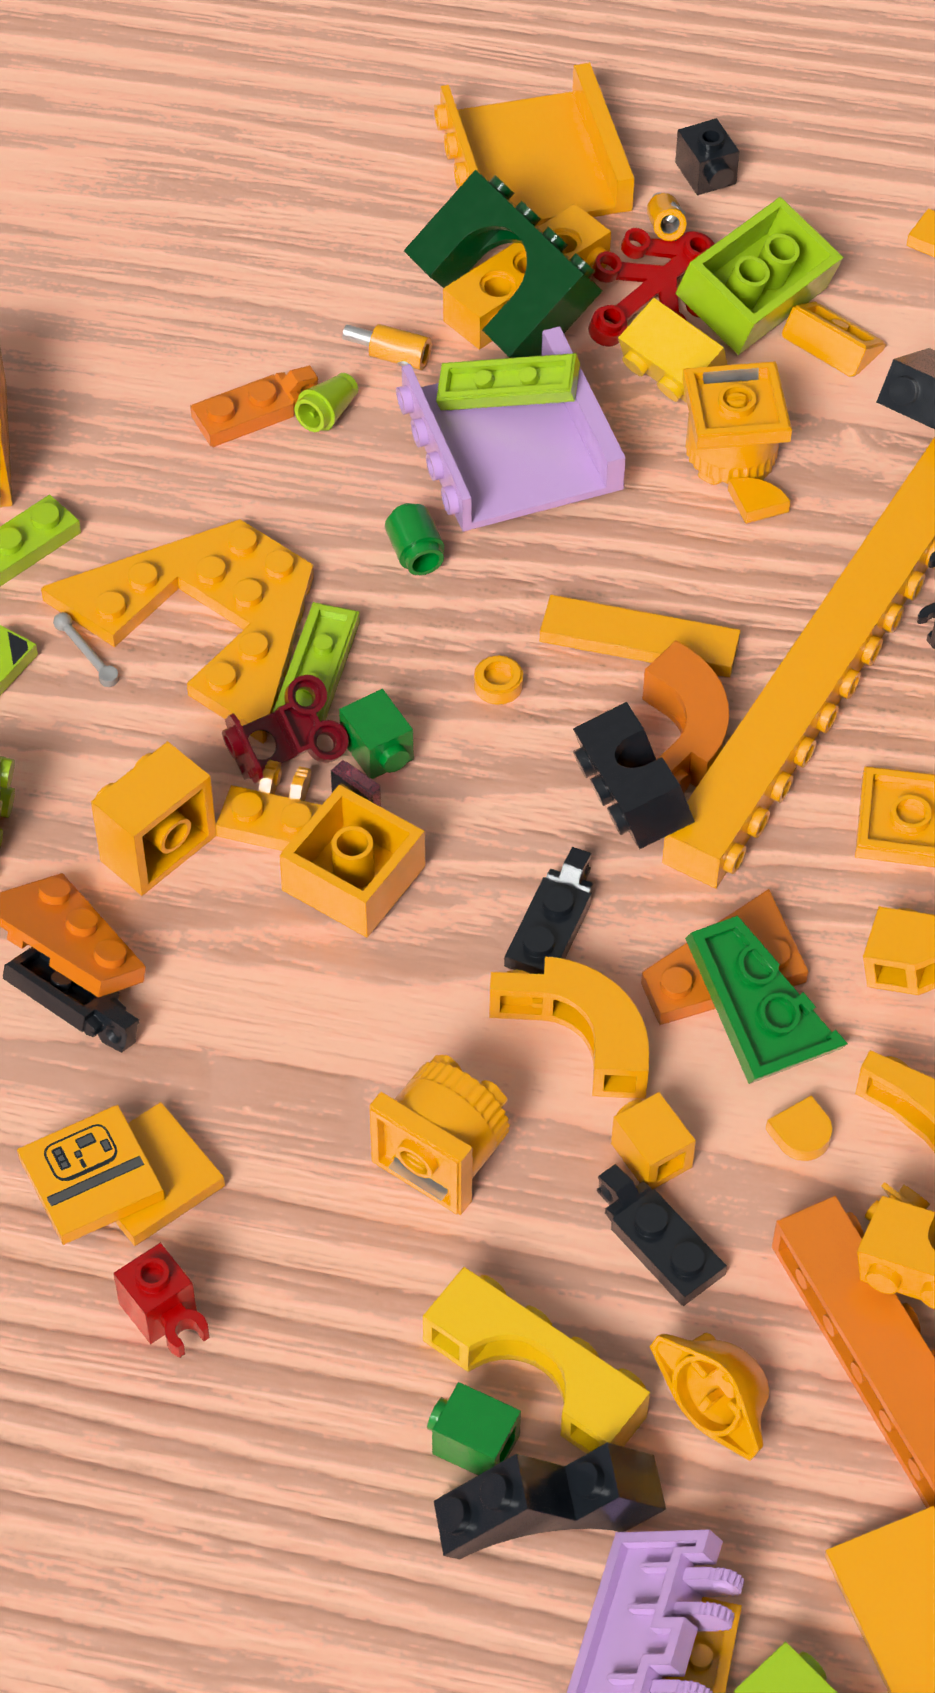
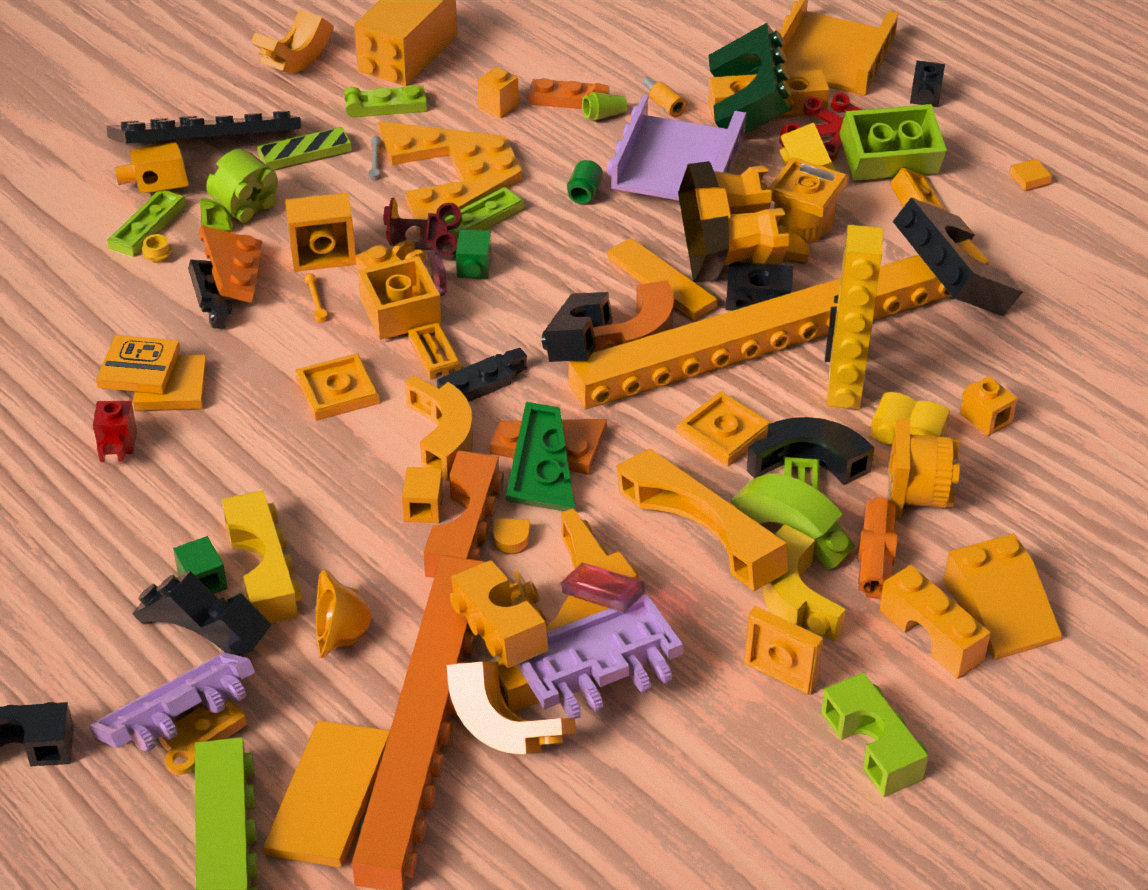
camera: 35 degrees right, 10 degrees down
(170, 453) = (498, 92): none -> light orange brick
(248, 943) = (320, 314): none -> light orange hinge
(376, 1041) = (337, 386): none -> light orange tile
(439, 1131) = (314, 427): light orange piece -> none
(447, 918) = (441, 365): none -> light orange tile
(498, 680) = (566, 263): light orange tile -> none
(508, 382) = (694, 126): lime tile -> none
(659, 1236) = (385, 541): black hinge -> none
(666, 216) = (871, 98): light orange piece -> none
(675, 529) = (729, 220): none -> light orange piece
(705, 1090) = (473, 486): none -> orange arch
(778, 585) = (756, 283): none -> black brick

